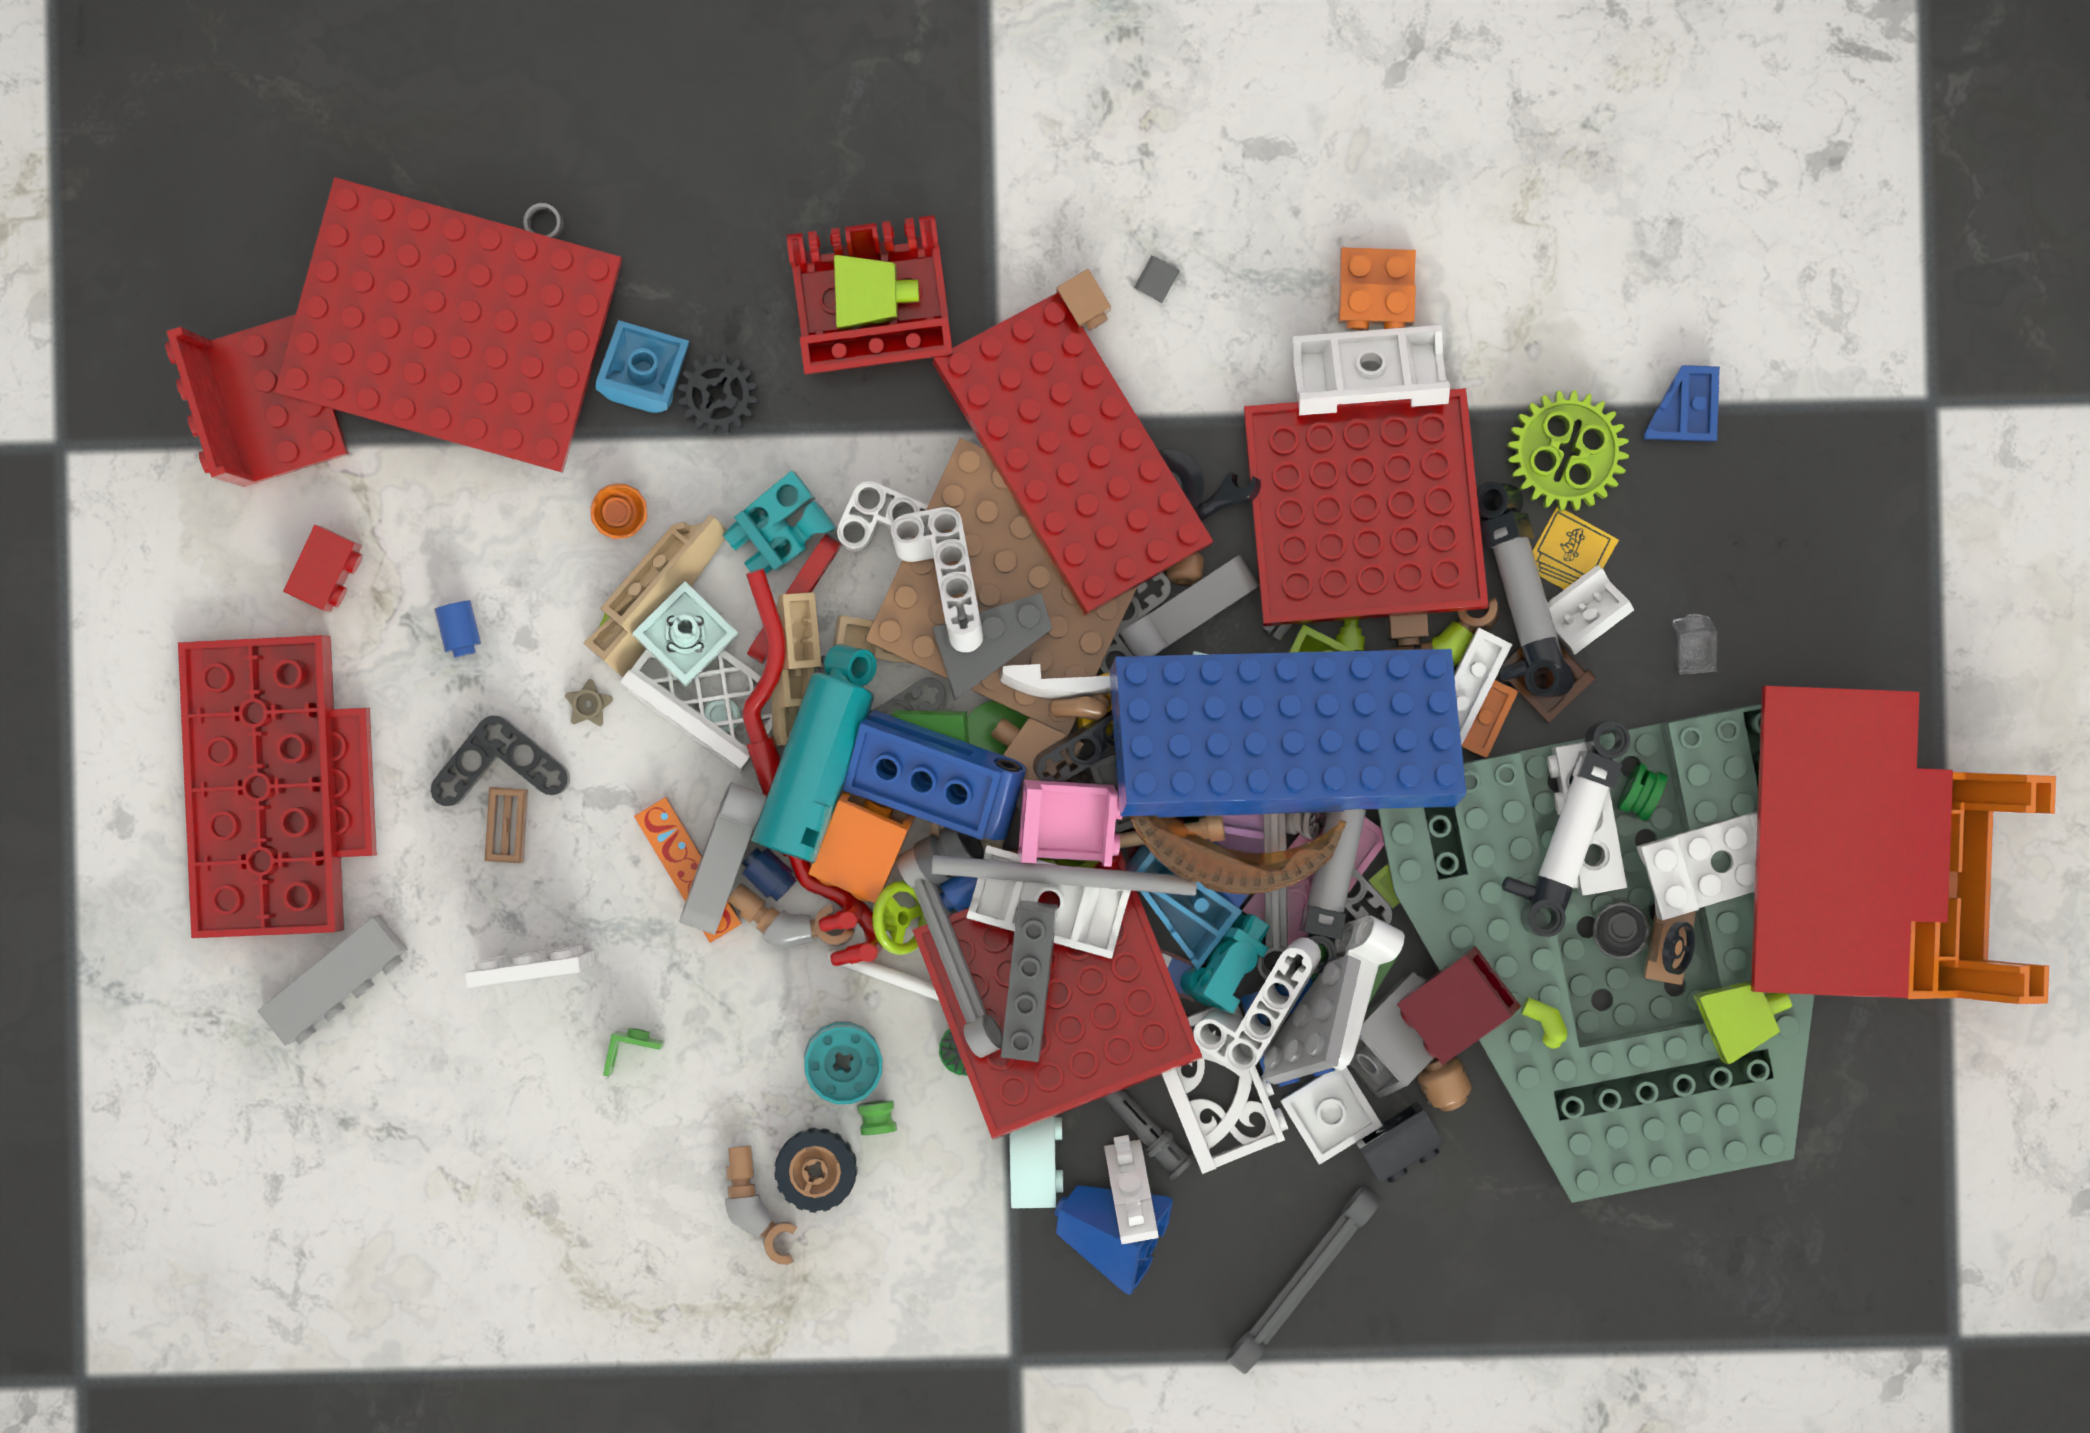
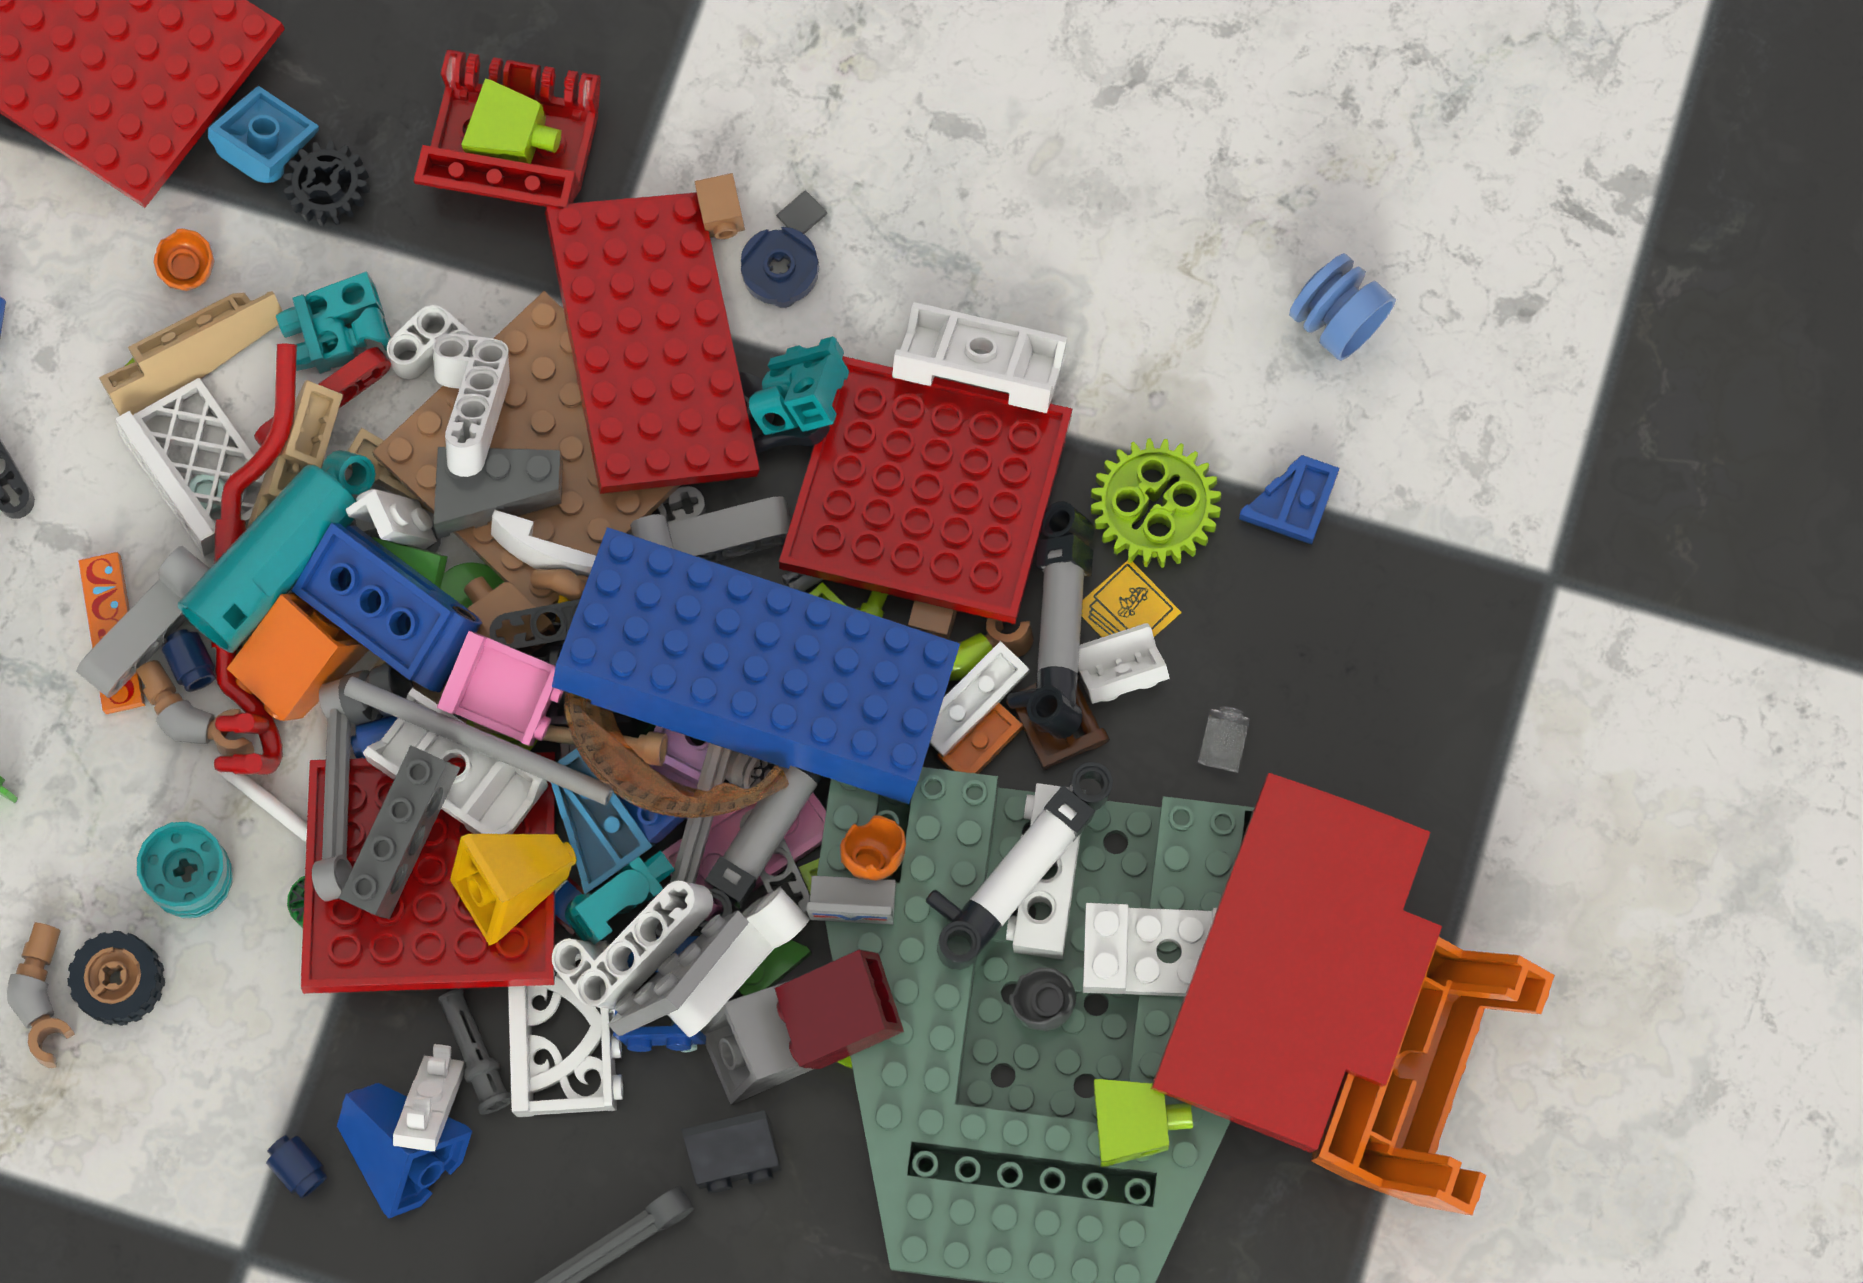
camera: 25 degrees right, 15 degrees down
(578, 701) = (70, 437): dark tan plate -> none
(687, 608) = (195, 384): light aqua plate -> none
(877, 1117) = (200, 943): bright green wheel -> none
(892, 918) = (285, 742): lime piece -> none
(910, 693) = (395, 518): none -> white bracket
(1032, 1276) = (296, 1165): none -> dark blue brick
(1033, 1165) = (342, 1040): light aqua brick -> none
(1132, 984) = (508, 876): none -> yellow slope
(1148, 318) = (776, 245): none -> dark blue plate
(1188, 571) = (725, 494): medium nougat piece -> none
(1224, 440) = (801, 387): none -> teal hips
(1331, 1113) = (671, 1096): white plate -> none
(1377, 288) = (1017, 286): orange plate -> none
(1437, 907) = (852, 900): none -> light grey panel
(1442, 859) = (873, 849): none -> orange hair
(1445, 1084) = (804, 1104): medium nougat head -> none
(1551, 1021) = (930, 1059): lime arm -> none
(1642, 792) = (1113, 861): green wheel -> none
(1670, 948) = (1088, 1030): piece -> none
(1678, 217) = (1335, 300): none -> medium blue wheel

